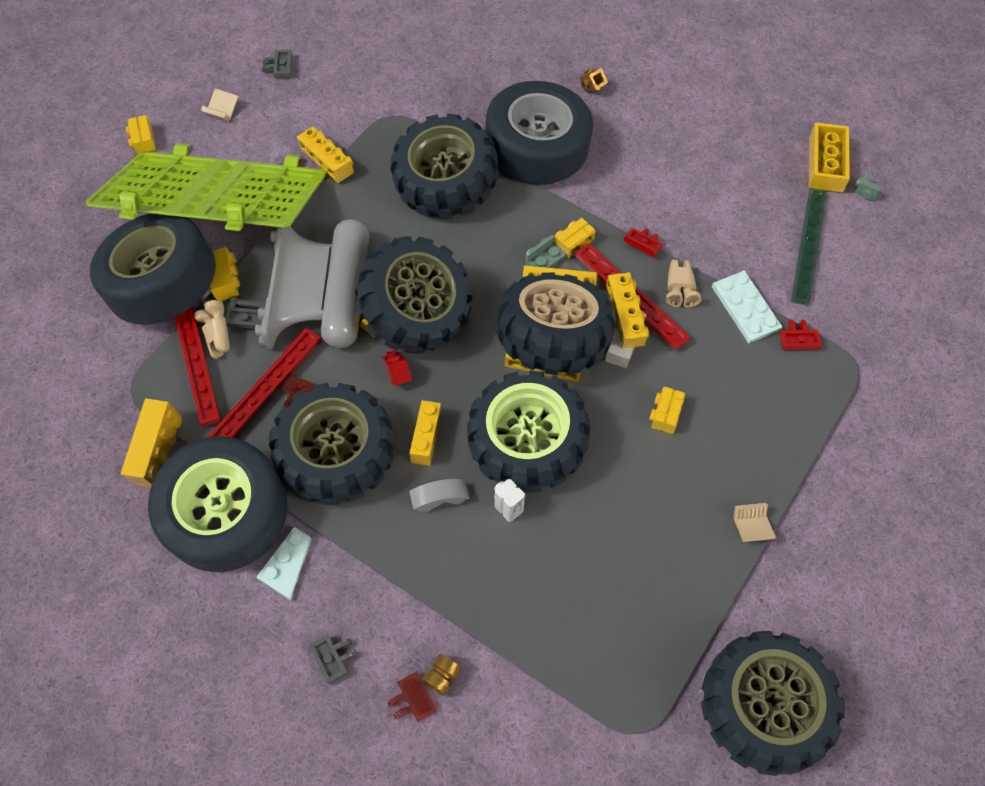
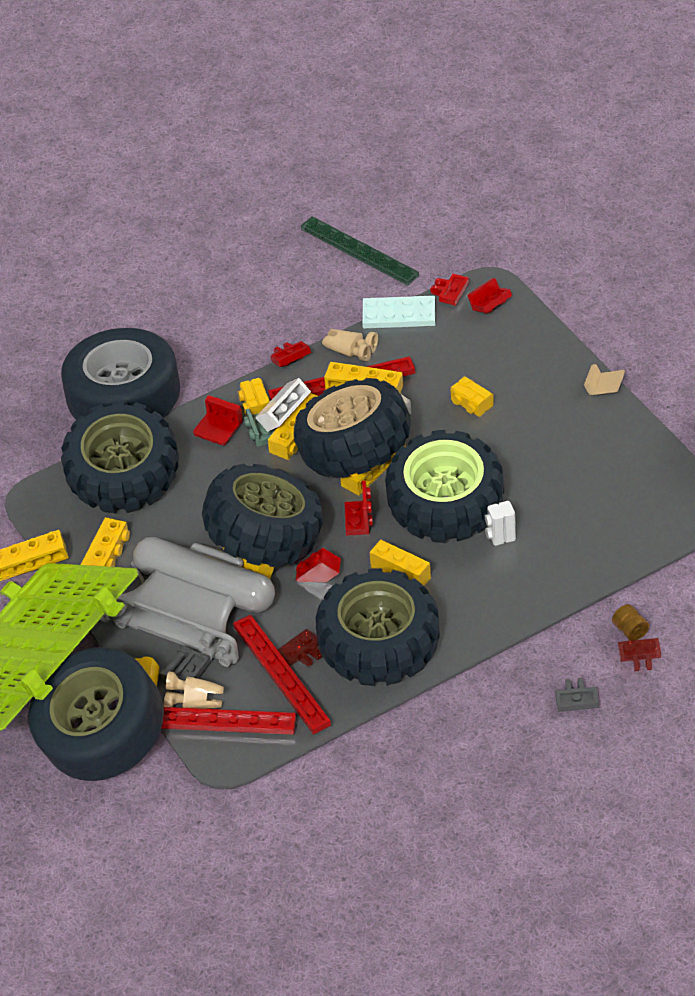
camera: 60 degrees left, 15 degrees down
(151, 442) = (296, 767): yellow brick -> none
(201, 466) = (385, 763): black wheel -> none
(284, 566) = (470, 709): light aqua wing -> none
(347, 203) = (107, 544): none -> yellow brick
(436, 493) = (466, 572): light grey brick -> none
(476, 374) = (356, 514): none -> red bracket
(532, 224) = (219, 421): none -> red bracket
(566, 259) = (283, 404): none -> white brick
(593, 79) = (75, 325): pearl gold brick -> none
(807, 373) = (488, 296): none -> red bracket
(829, 157) = (279, 198): yellow brick -> none
(866, 188) = (327, 189): sand green bracket -> none

